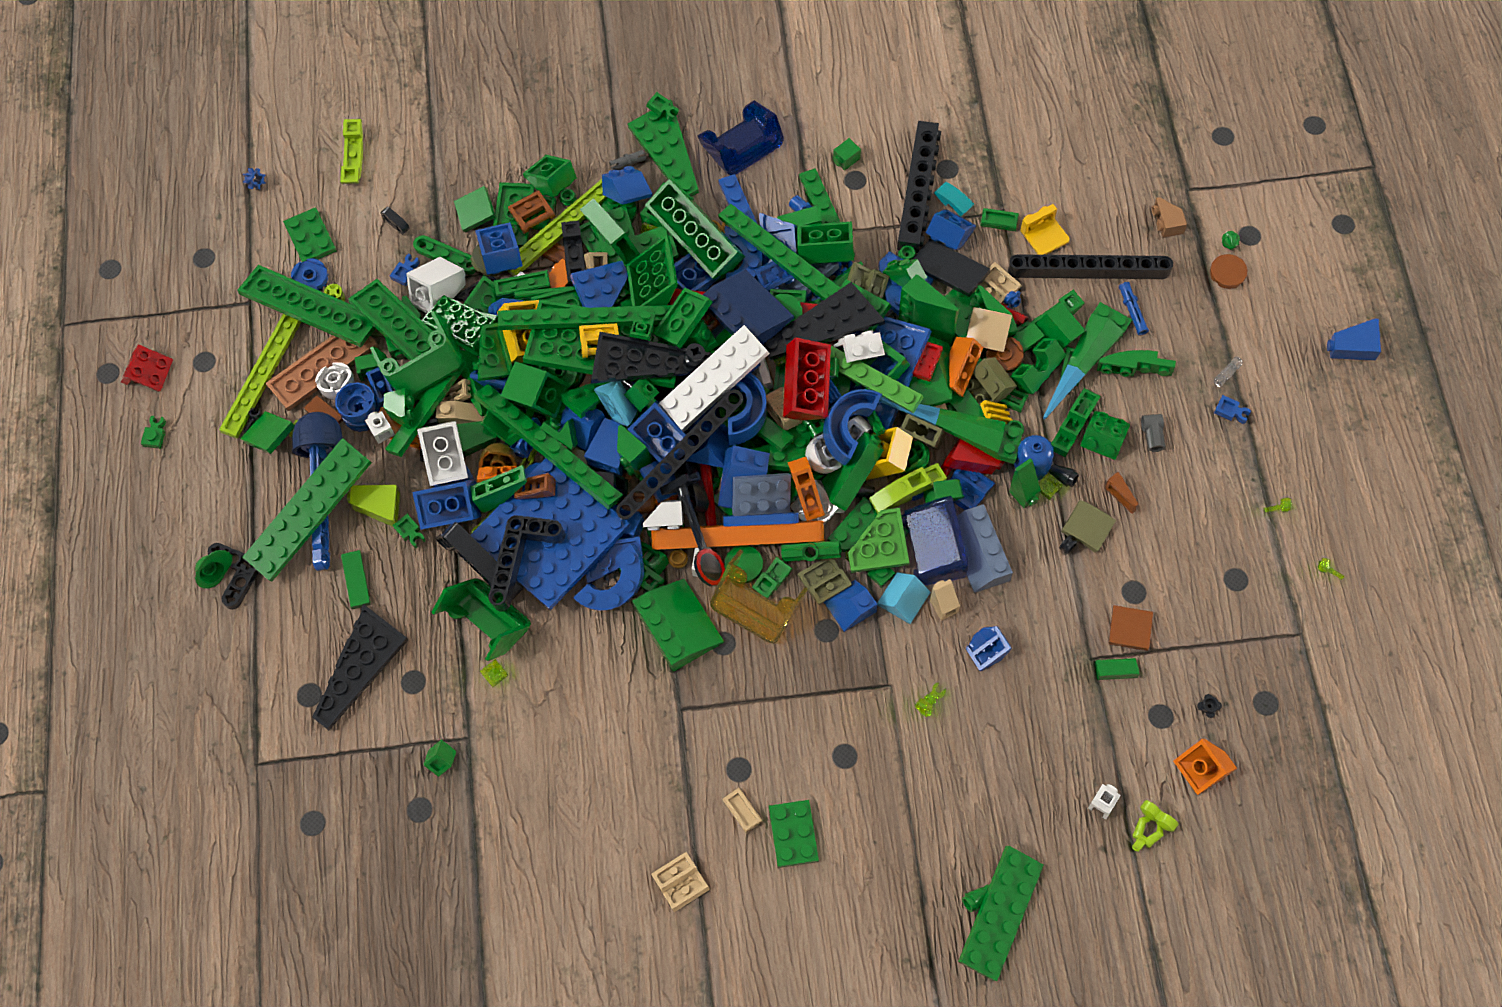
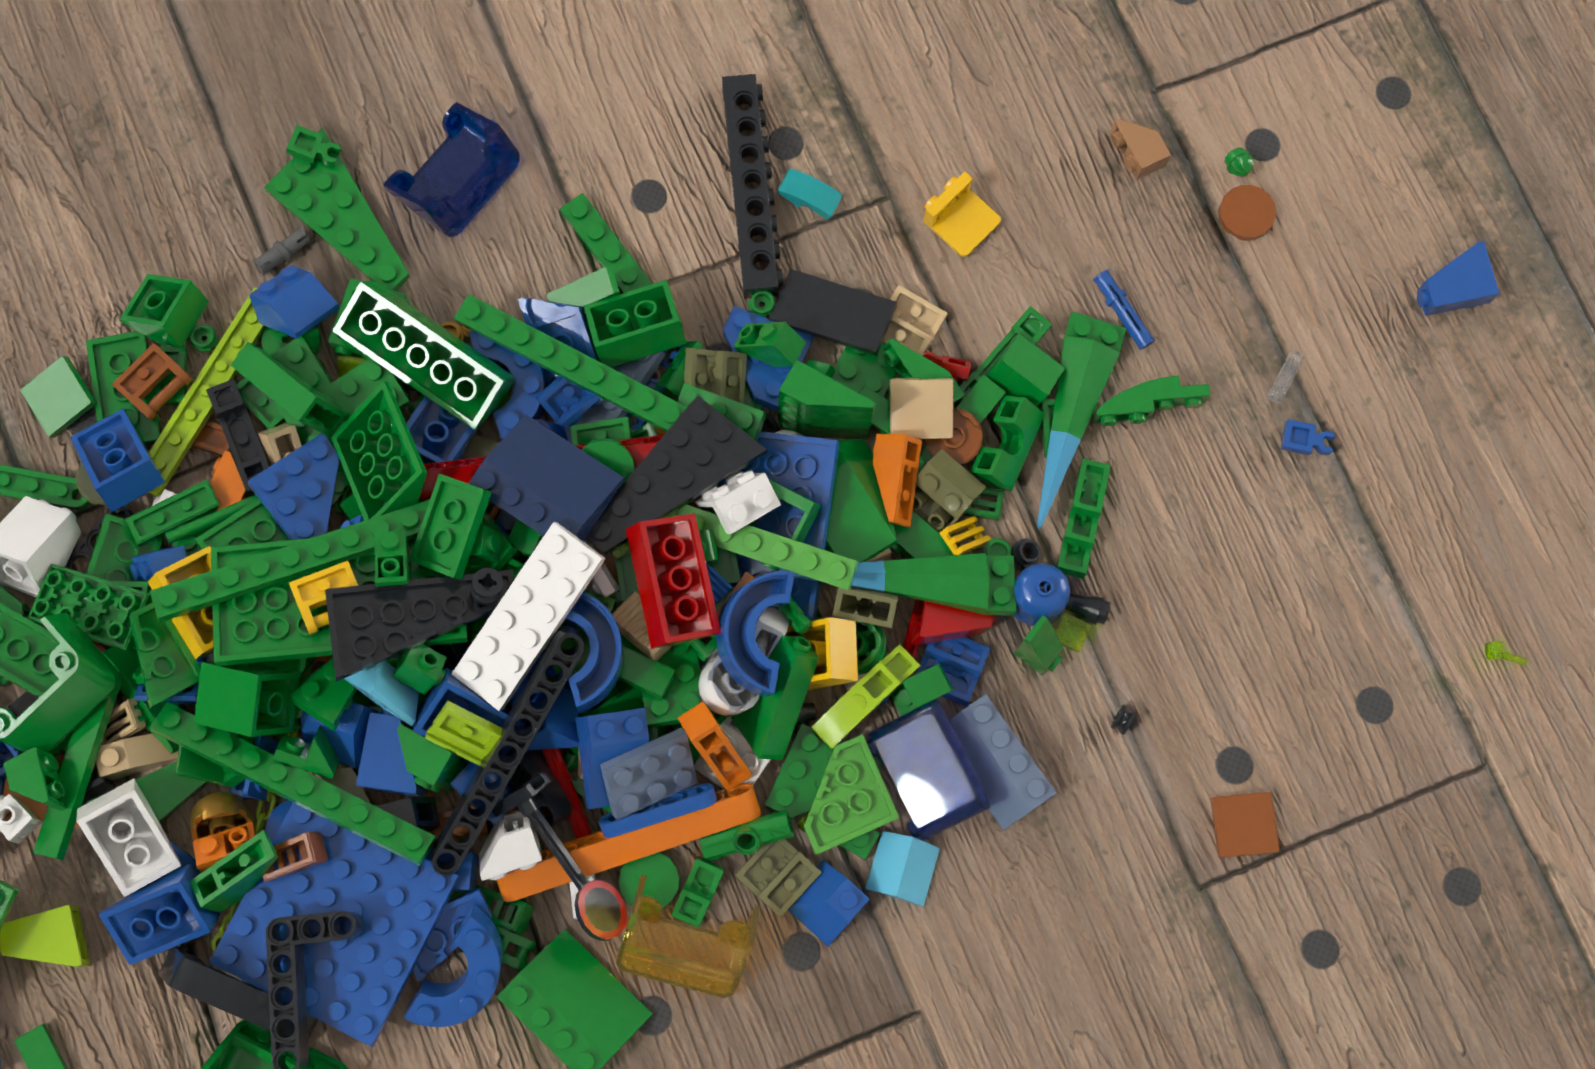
camera: 25 degrees left, 10 degrees up
(408, 529) = (108, 968): green plate -> none
(656, 436) = (463, 733): none -> lime plate
(678, 559) = (547, 902): pearl gold plate -> none
(735, 195) = (474, 275): blue plate -> none
(798, 203) = (576, 264): blue bush -> none
(846, 154) = (625, 158): green brick -> none
(925, 705) = (978, 1033): clear neon green piece -> none
(927, 362) = (846, 490): red plate -> none
(944, 599) = (966, 861): tan slope -> none
(950, 229) = (817, 246): blue slope -> none
(988, 647) = (1046, 914): blue slope -> none
(999, 219) = (887, 210): green tile -> none
(1012, 299) = (941, 340): blue plate -> none
(1034, 429) = (1032, 550): none -> black plate
(1088, 525) = (1144, 680): olive slope -> none
(1098, 262) = (1053, 248): black beam -> none
(1105, 434) = (1133, 526): green bracket -> none
(1117, 669) = (1241, 894): green slope -> none
(1118, 488) = (1177, 612): dark orange slope -> none
(1153, 428) = (1200, 496): dark grey piece -> none
(1204, 765) = (1404, 1014): orange slope -> none
(1215, 705) = (1394, 913): black plate -> none
(1285, 506) = (1418, 570): clear neon green hand -> none

